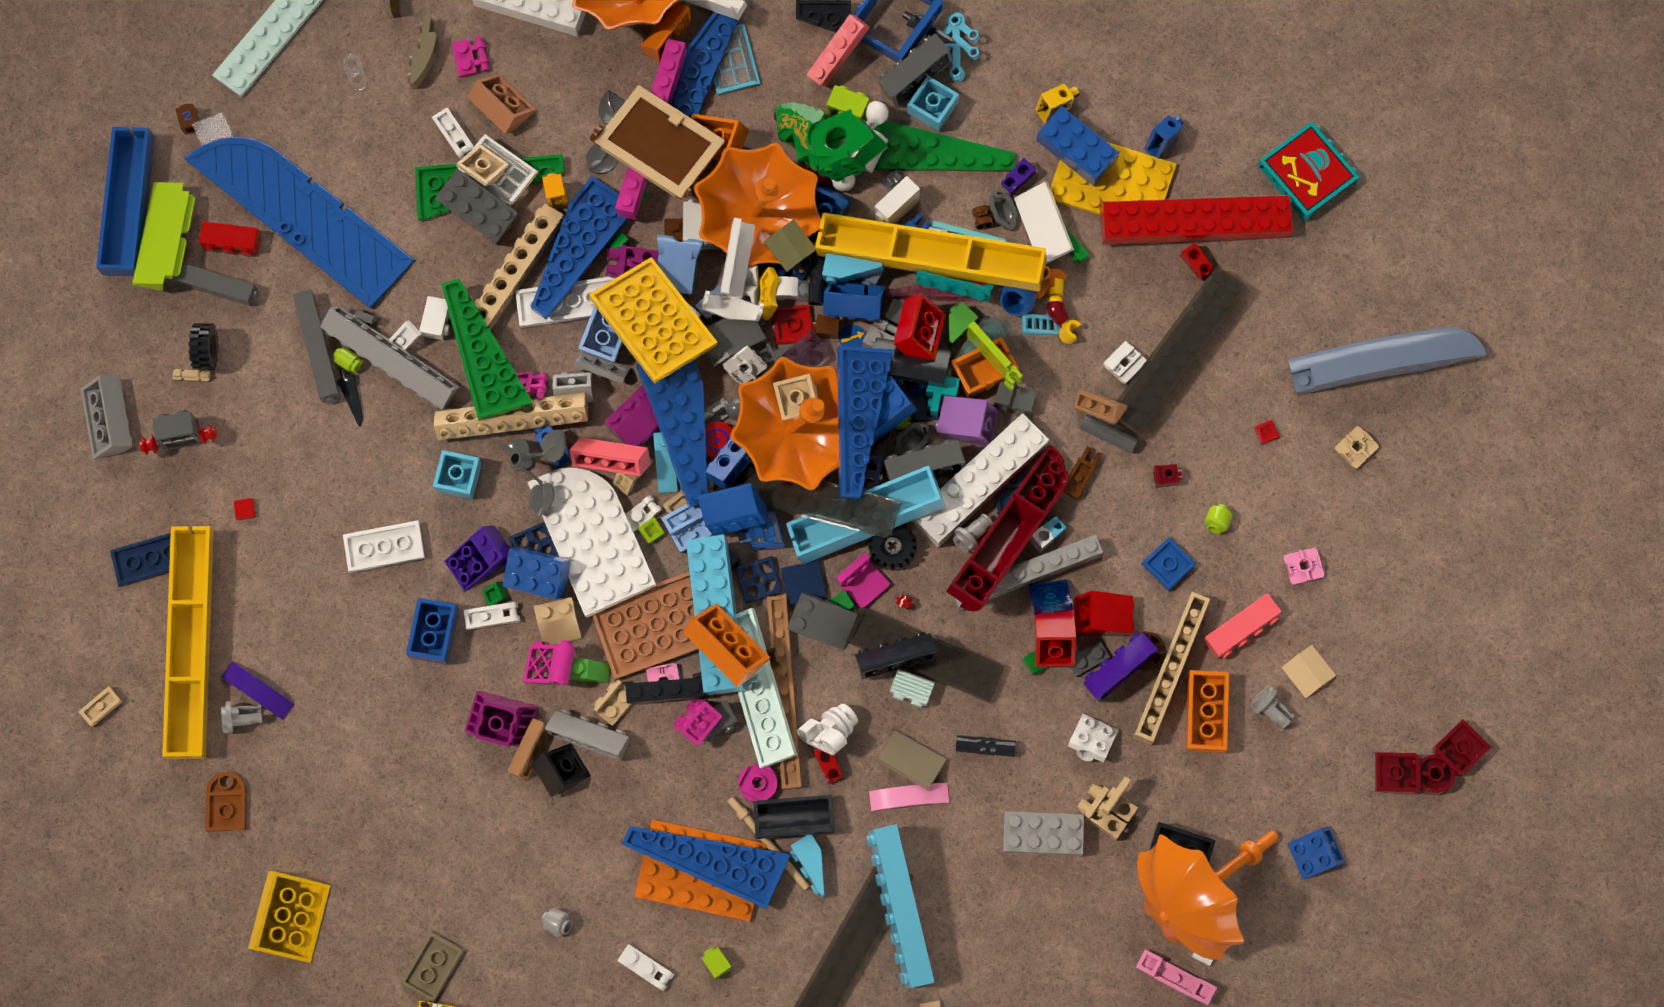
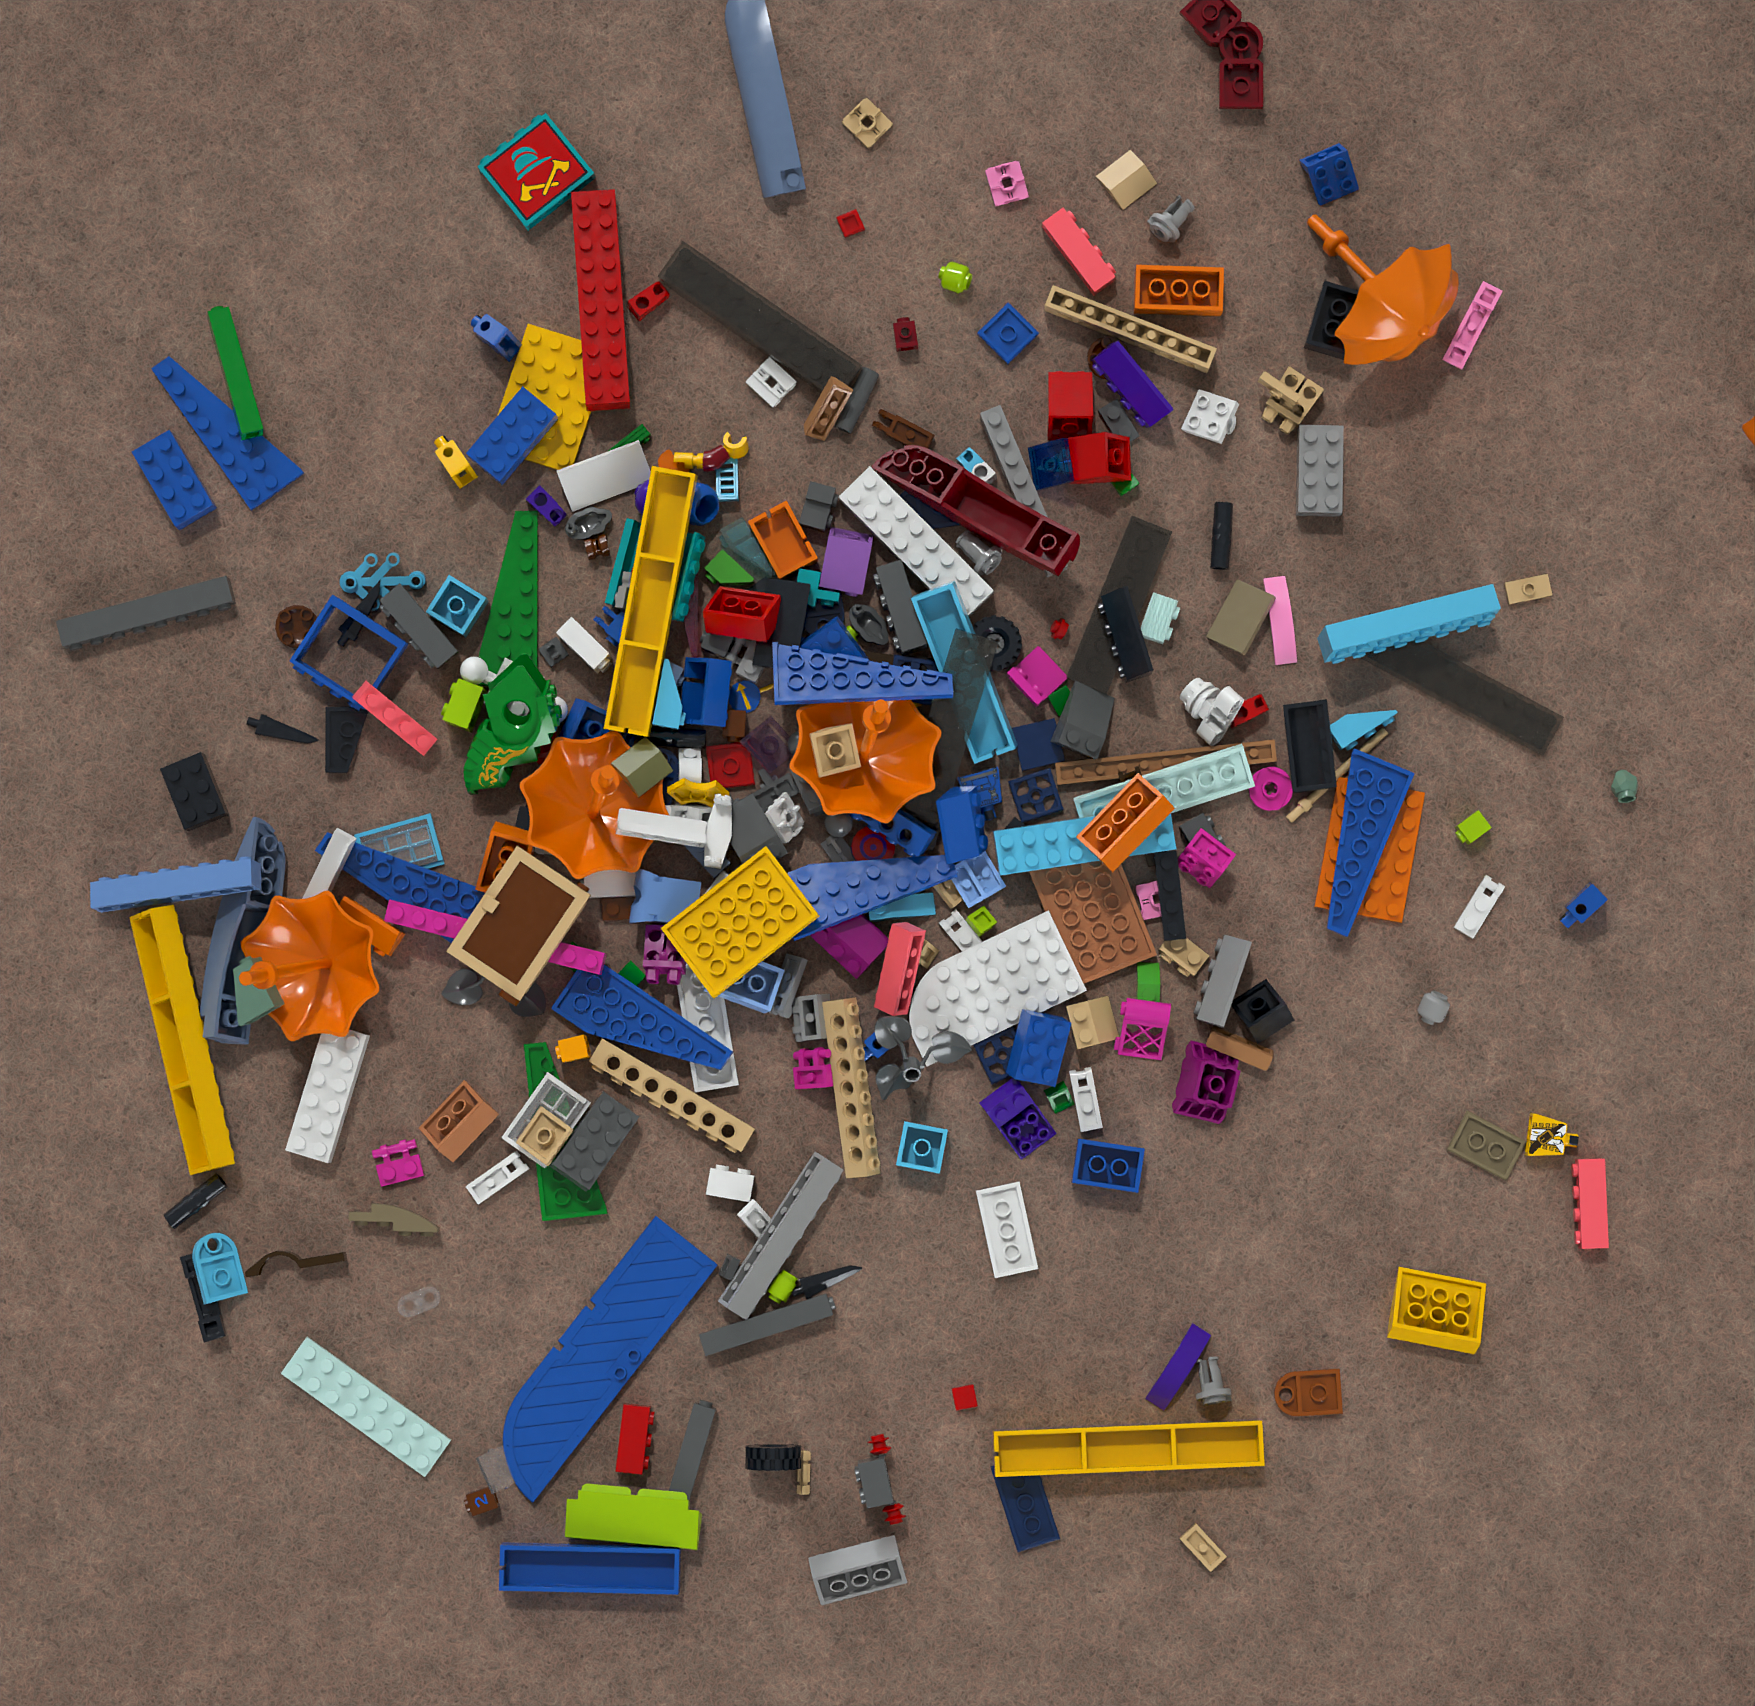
camera: 90 degrees left, 10 degrees up
(488, 372) = (804, 1113): green wing -> none
(994, 355) = (778, 525): lime tile -> none

